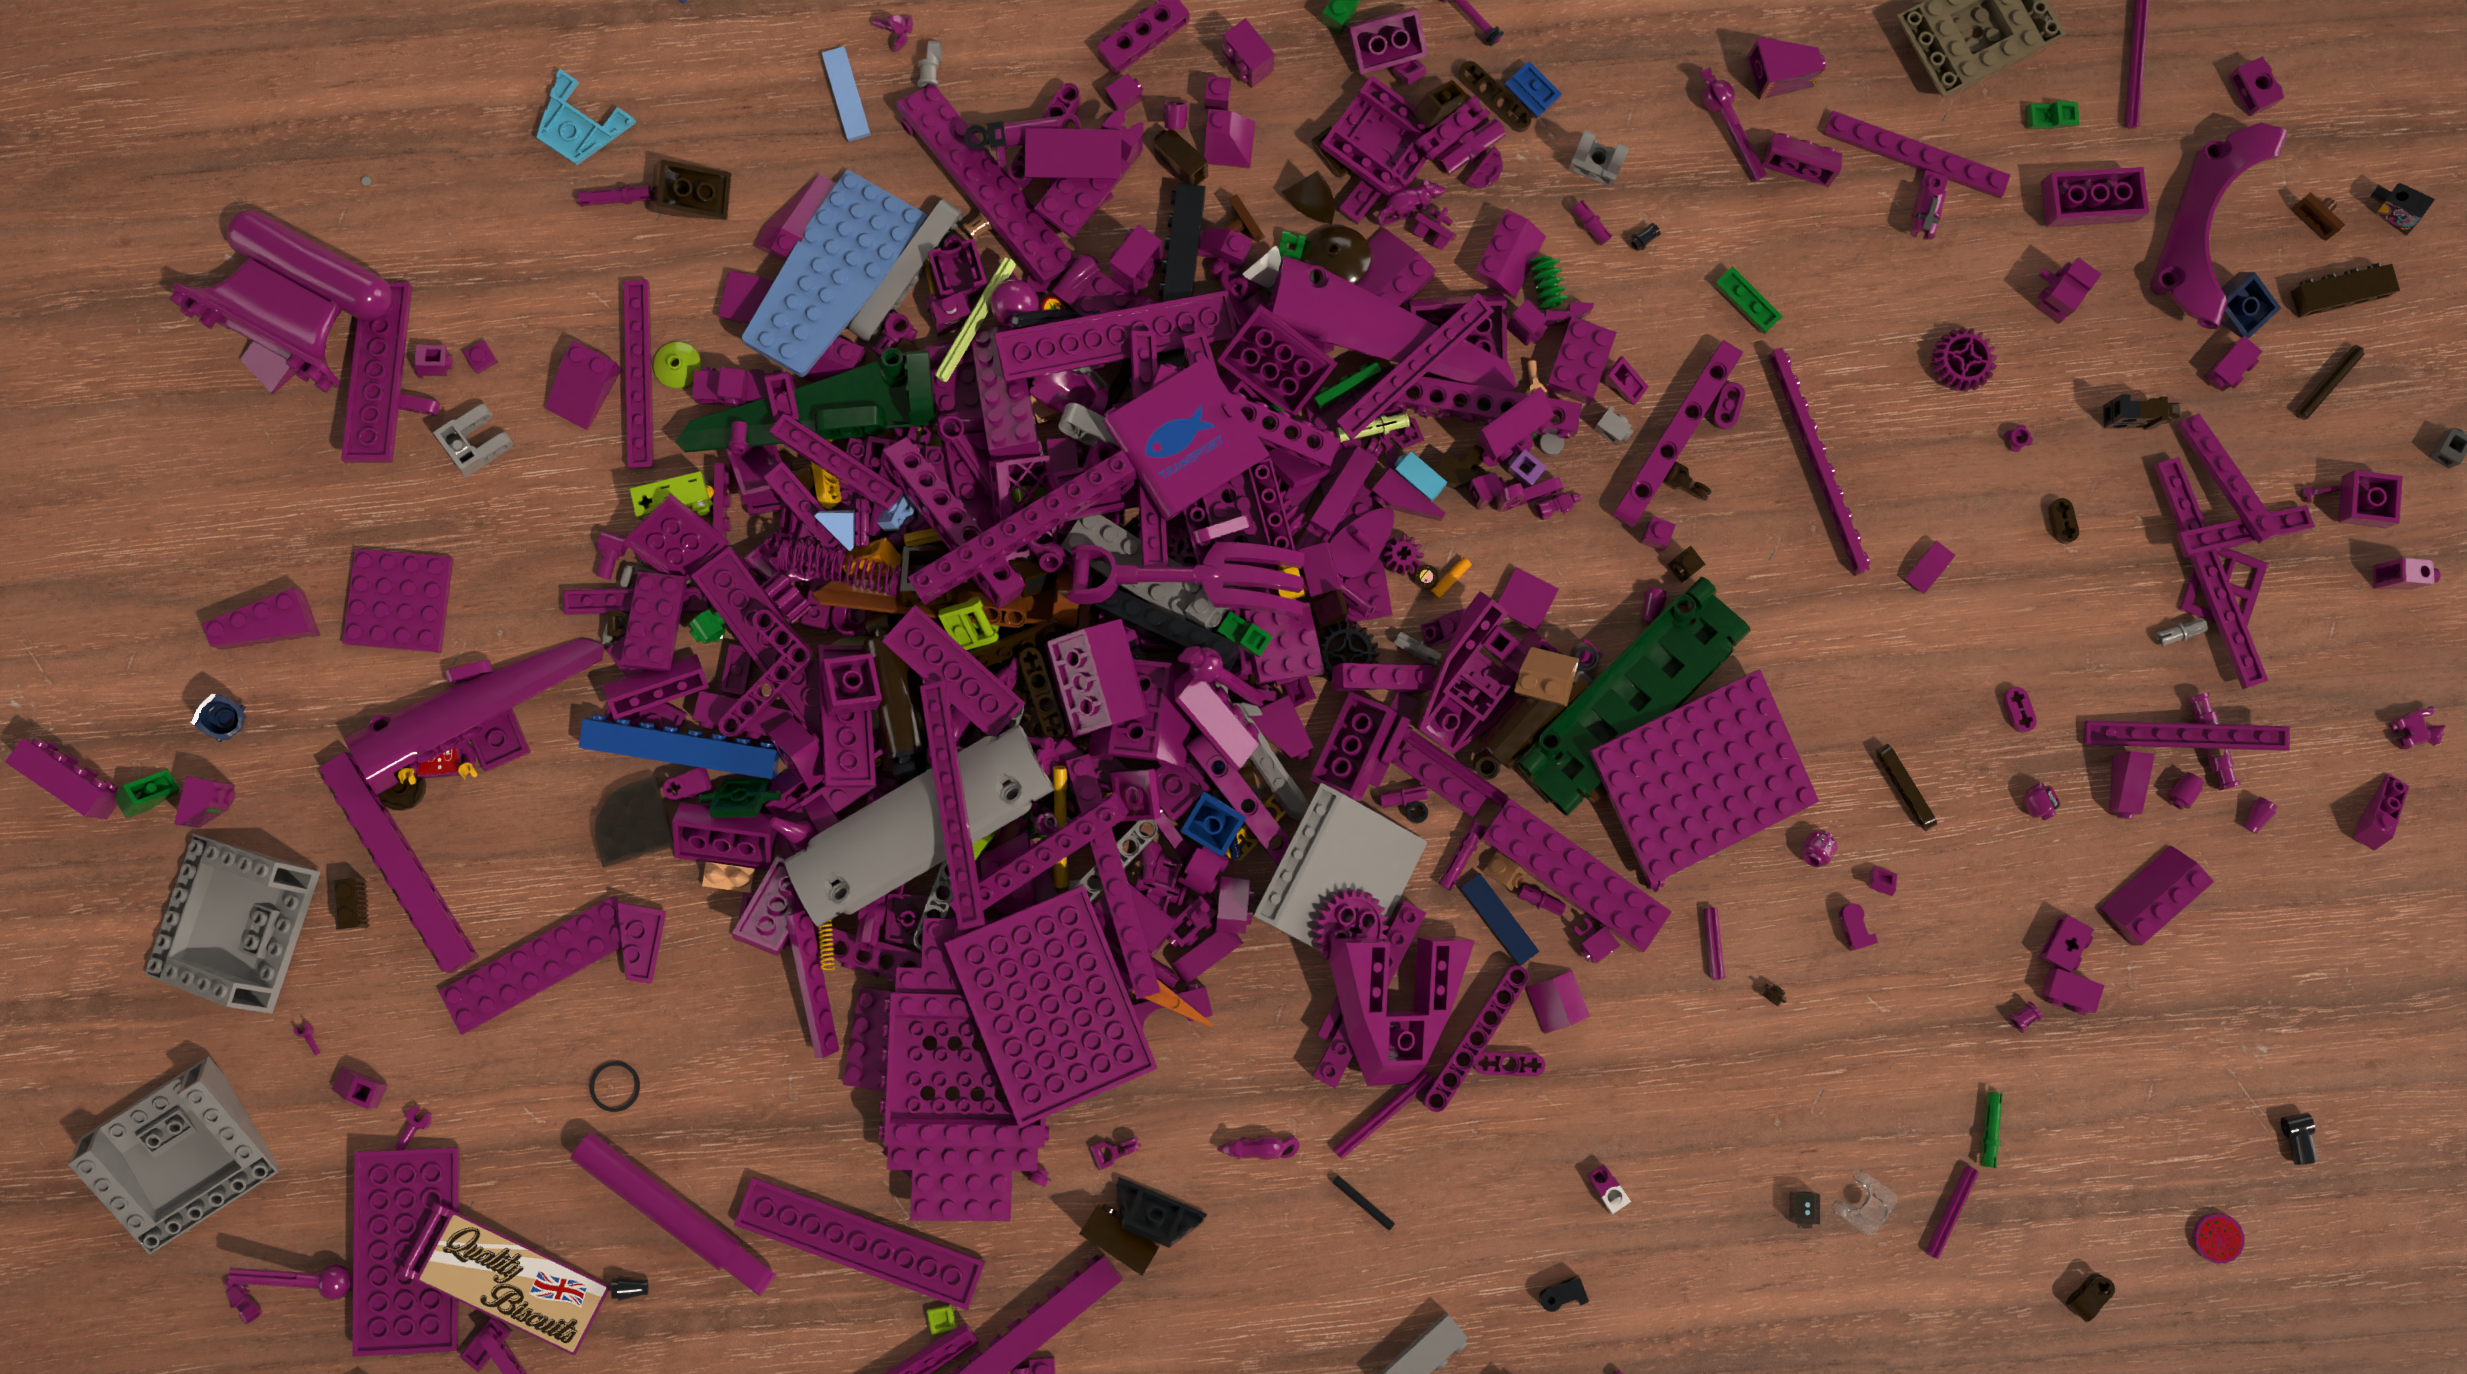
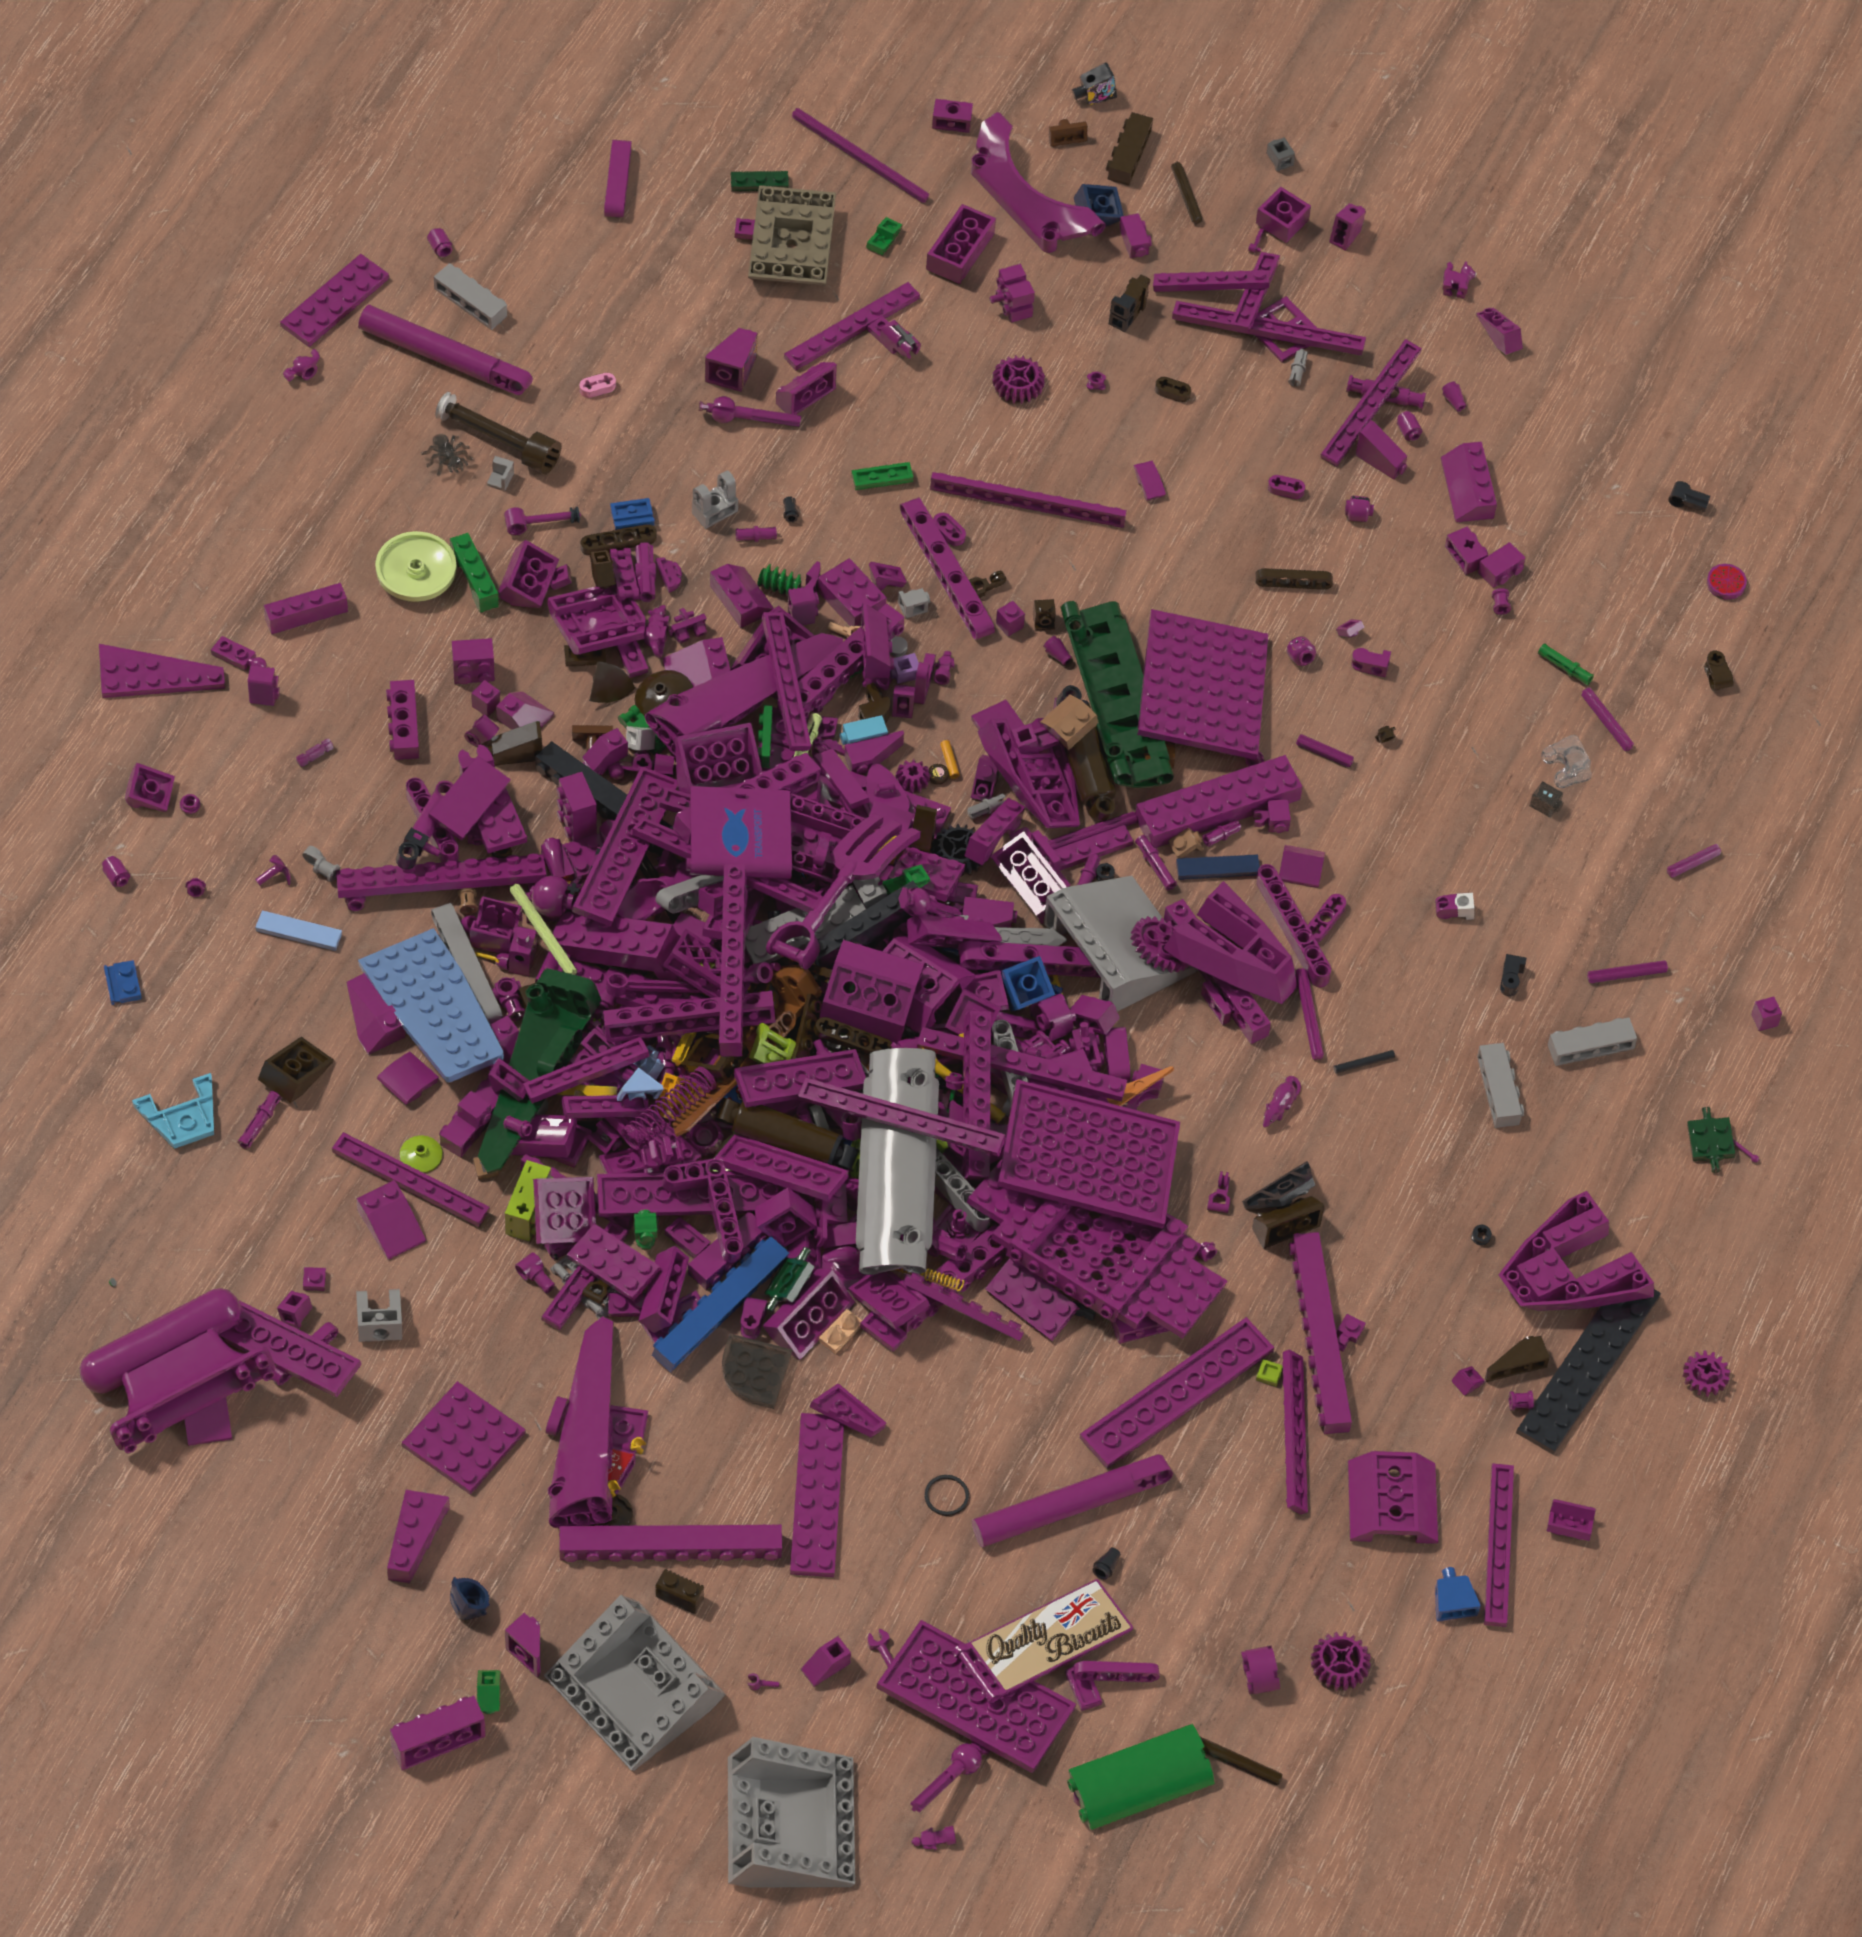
camera: 60 degrees left, 25 degrees down
(850, 684) = (762, 1143): magenta brick -> none
(1124, 93) = (439, 756): magenta brick -> none

